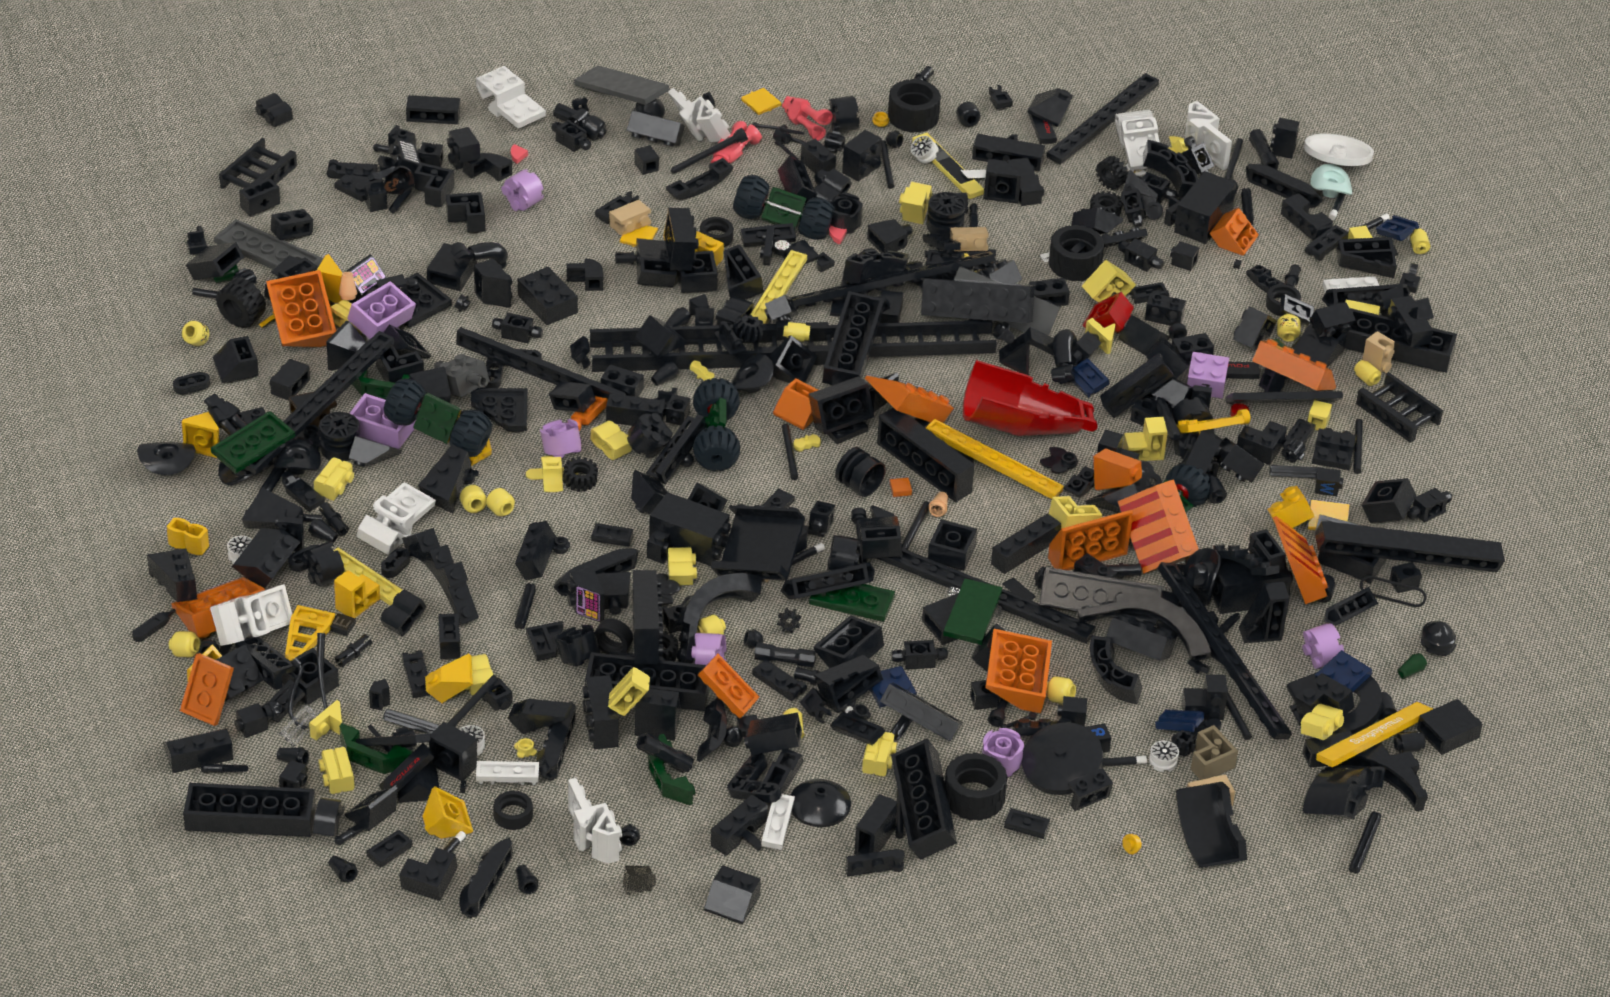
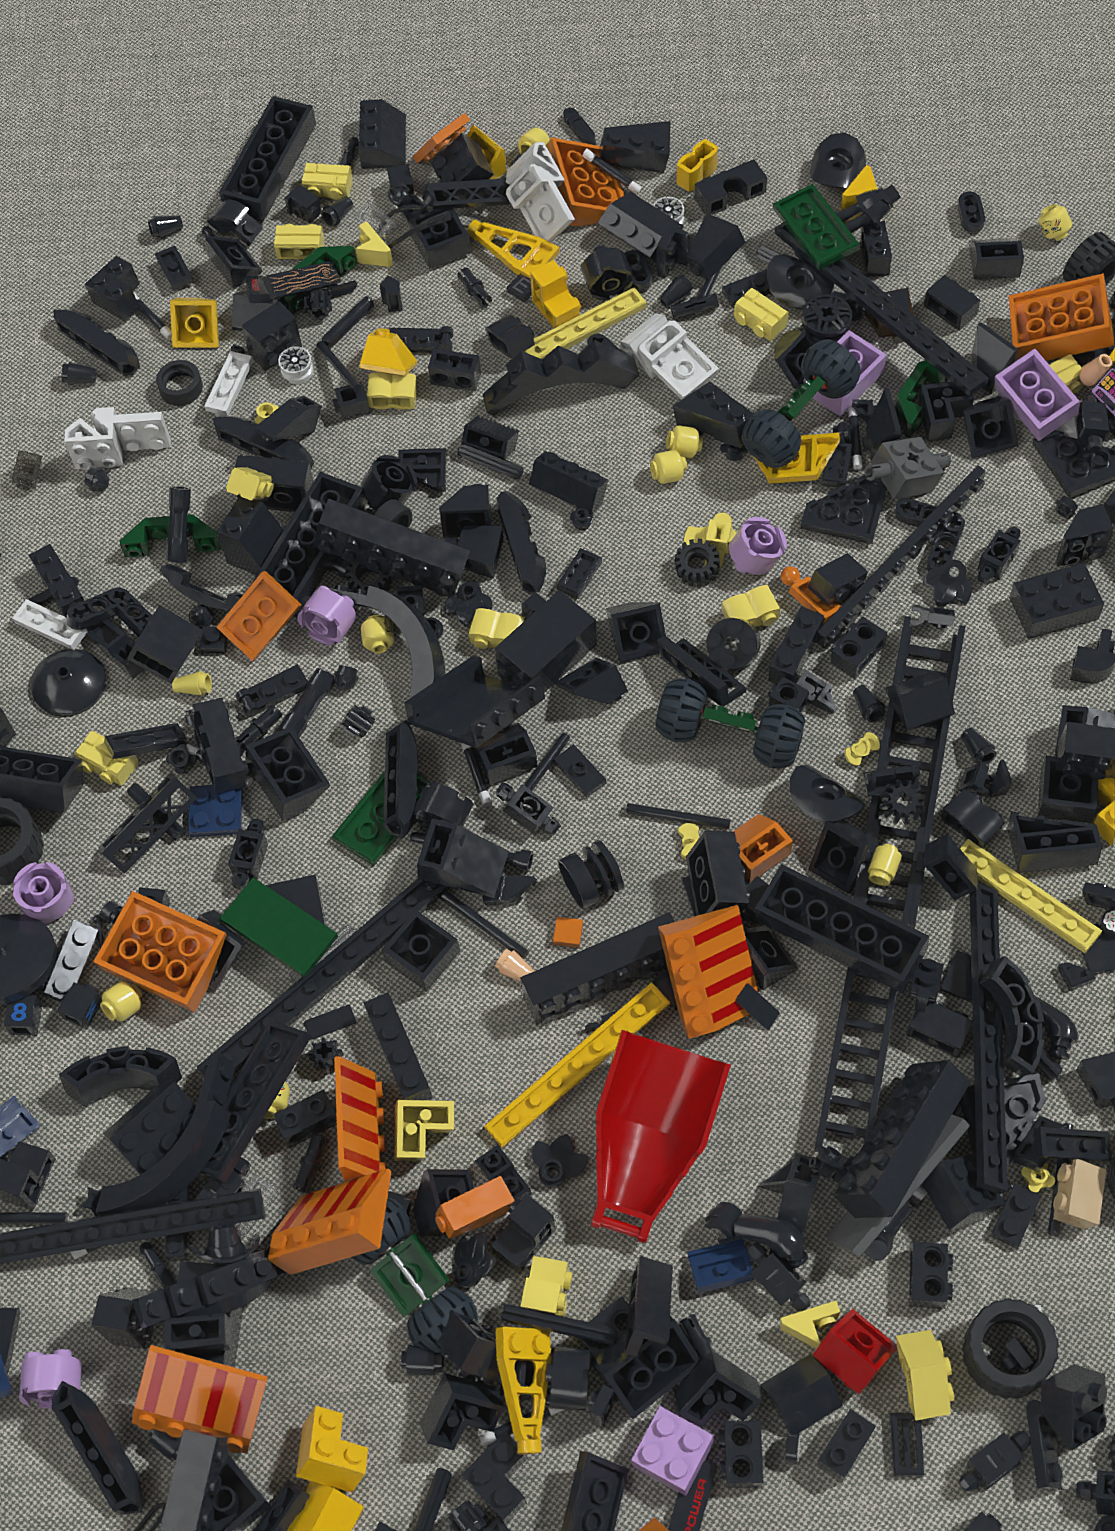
camera: 115 degrees right, 20 degrees up
(193, 509) = (745, 179): none -> black arch
(205, 588) = (611, 171): none -> black bar
(262, 767) = (327, 180): none -> light yellow brick
(507, 603) = (490, 437): none -> black brick
(550, 348) = (946, 586): none -> black plate

